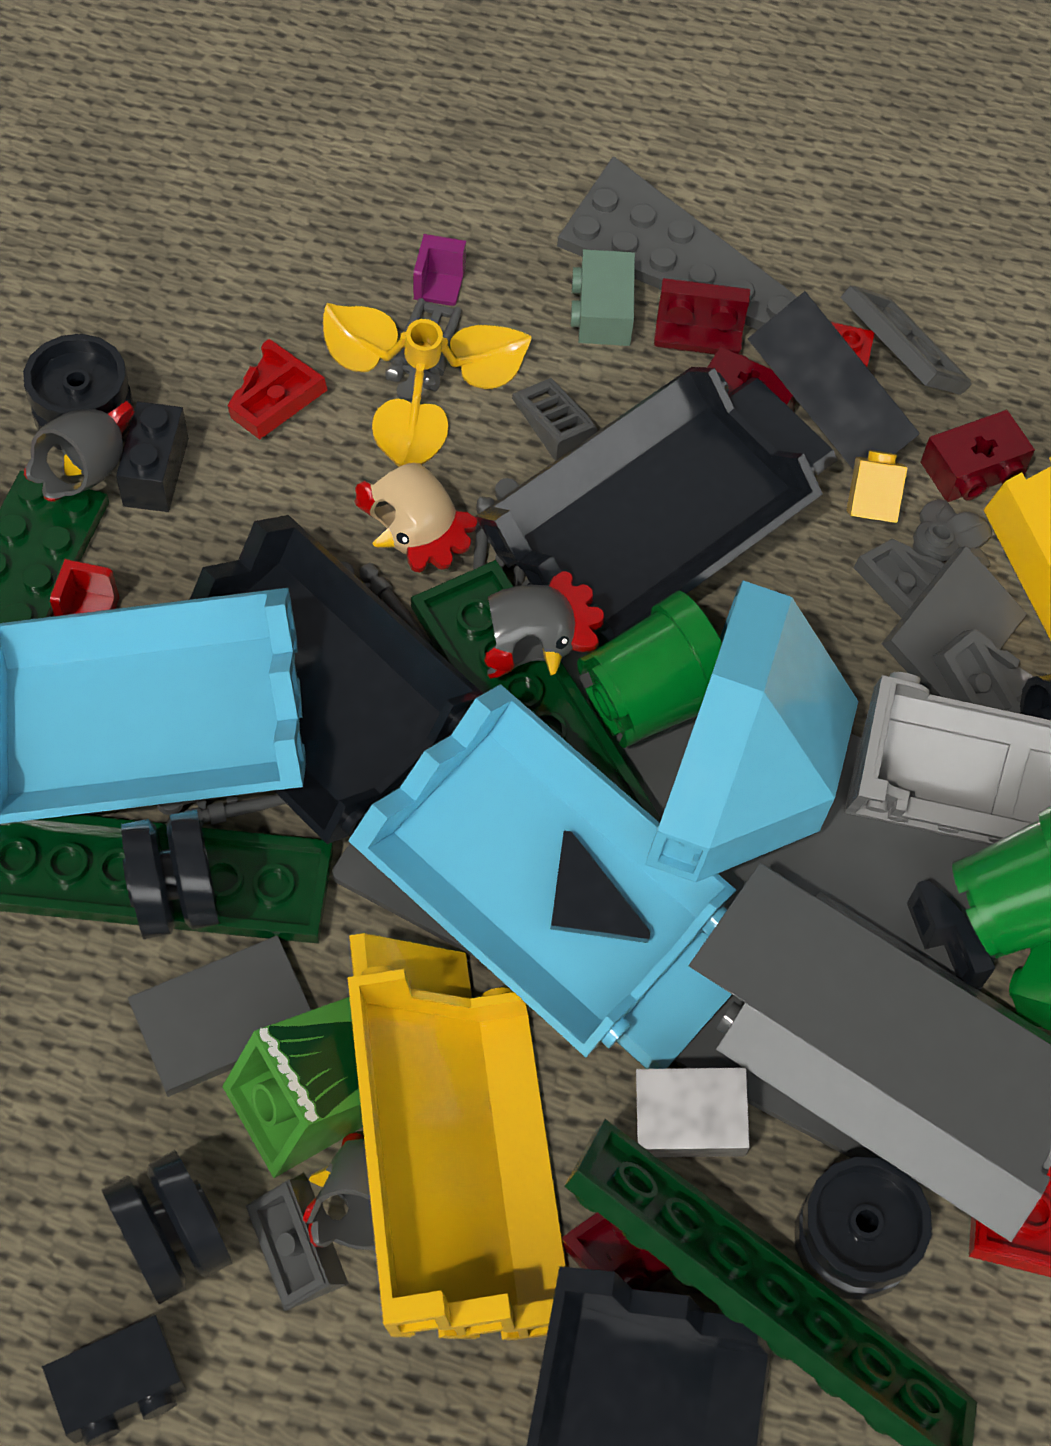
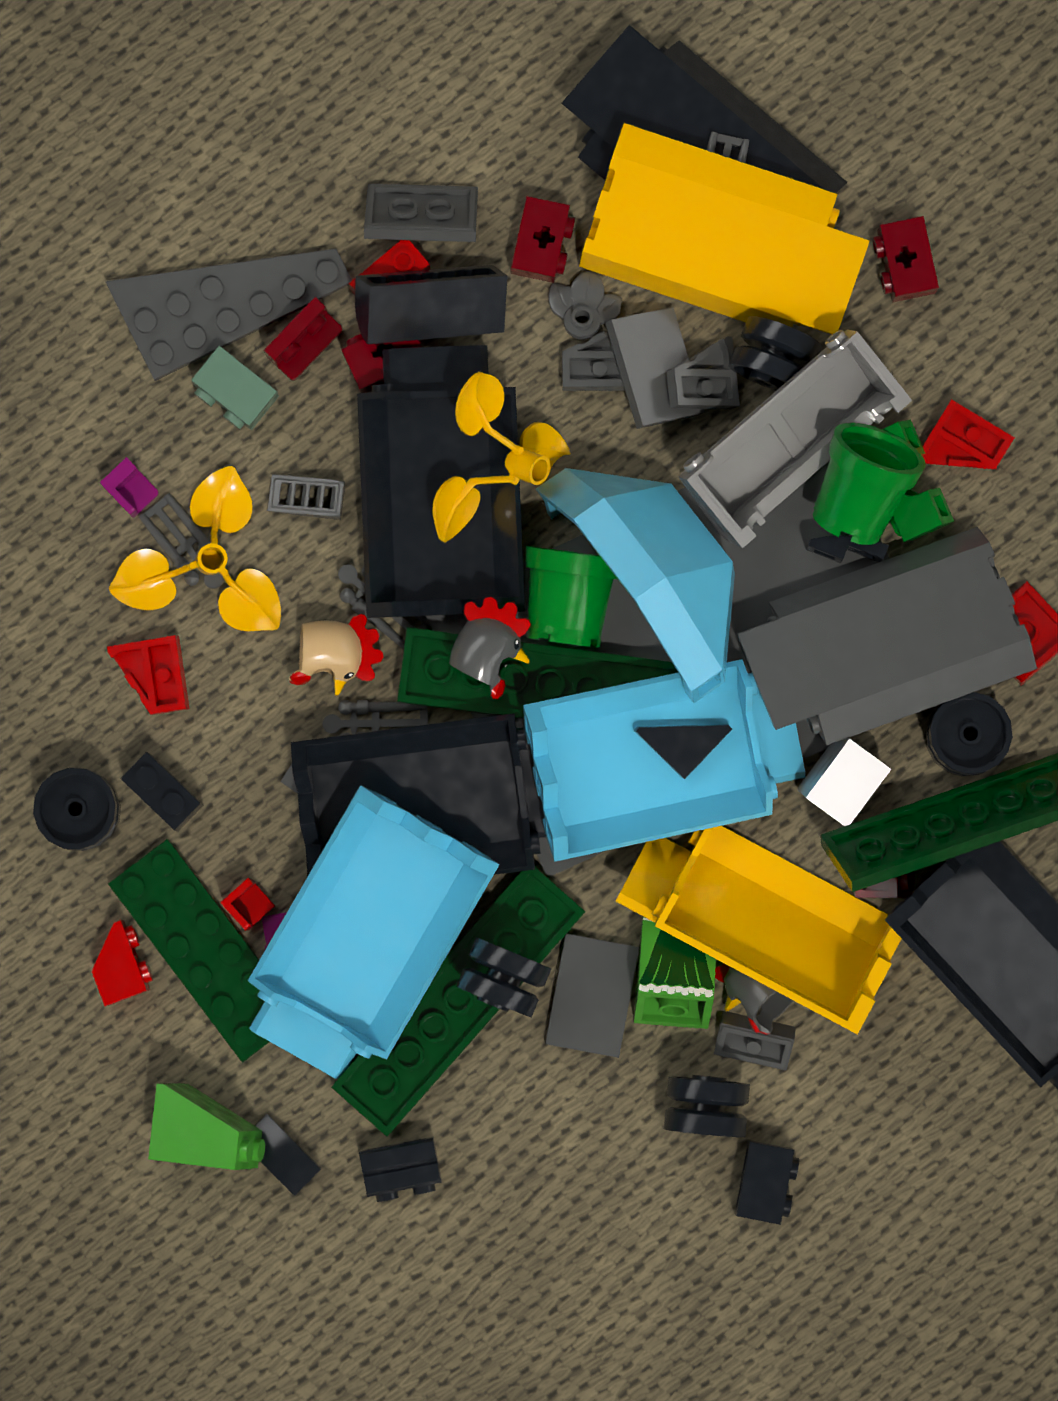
camera: 50 degrees left, 25 degrees up
(89, 445) = (137, 833): dark grey piece -> none
(775, 445) = (539, 449): none -> yellow plant
(877, 487) = (522, 333): yellow brick -> none

